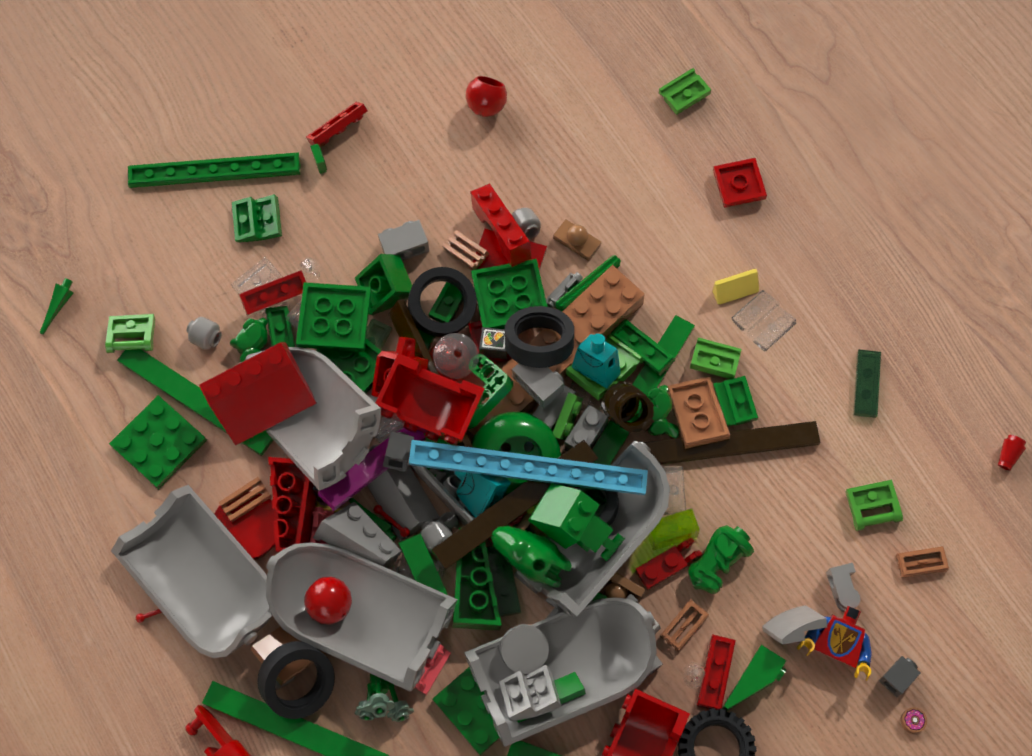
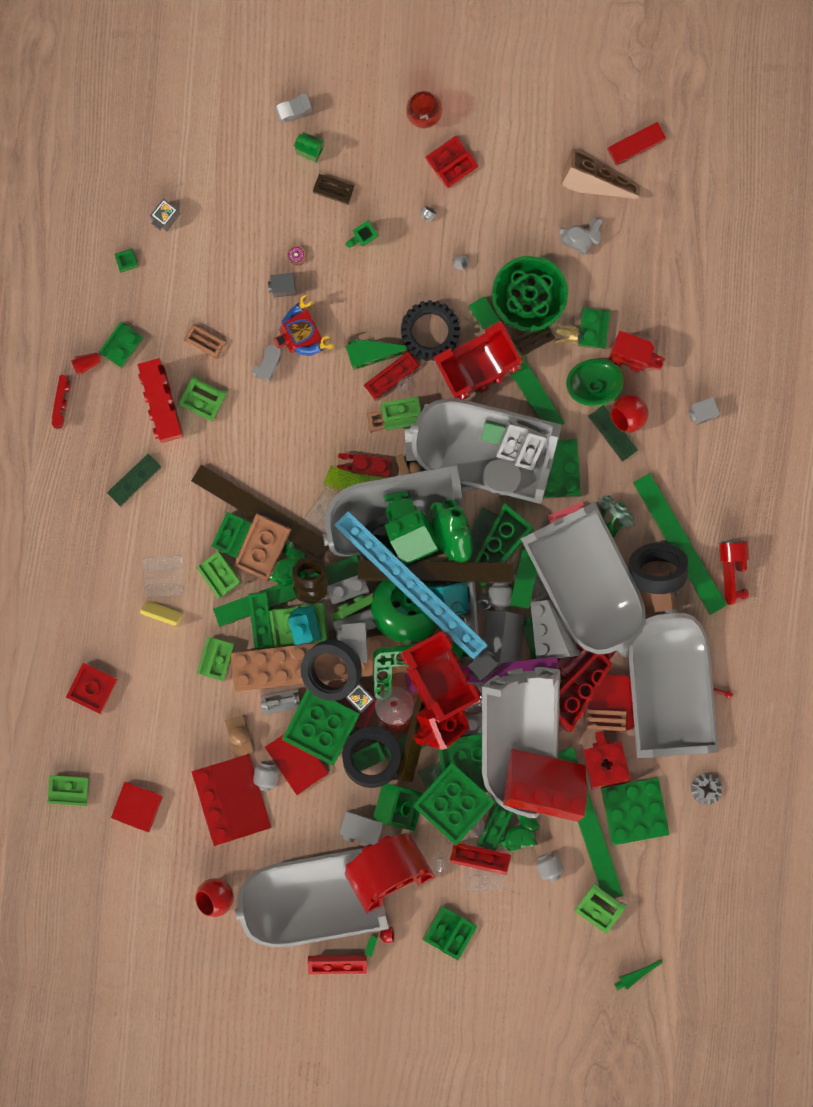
camera: 140 degrees left, 15 degrees up
(110, 516) = (698, 793): none -> light grey gear
(213, 170) = (452, 999): green tile -> none
(214, 472) = (609, 752): none -> red hinge
(310, 177) = (387, 935): none -> red hinge
(328, 600) = (602, 601): red helmet -> none
(349, 222) = (386, 869): none -> red cylinder
(399, 153) = (304, 903): none -> light grey panel
(404, 532) = (518, 615): red hinge -> none
(454, 241) = (326, 803): nougat tile -> none
(510, 236) = (285, 782): red arch -> none
(540, 180) = (231, 800): none -> red slope
(577, 290) = (259, 694): green axle -> none
(615, 120) = (136, 807): none -> red slope
(655, 284) = (215, 659): none -> bright green plate
(676, 637) = (400, 413): none -> bright green plate
(722, 552) = (326, 443): green animal -> none
(791, 624) = (322, 364): light grey slope -> none
(911, 469) = (160, 400): none -> red wedge
(994, 496) = (121, 345): none -> green plate
(997, 396) = (60, 403): none -> red hinge

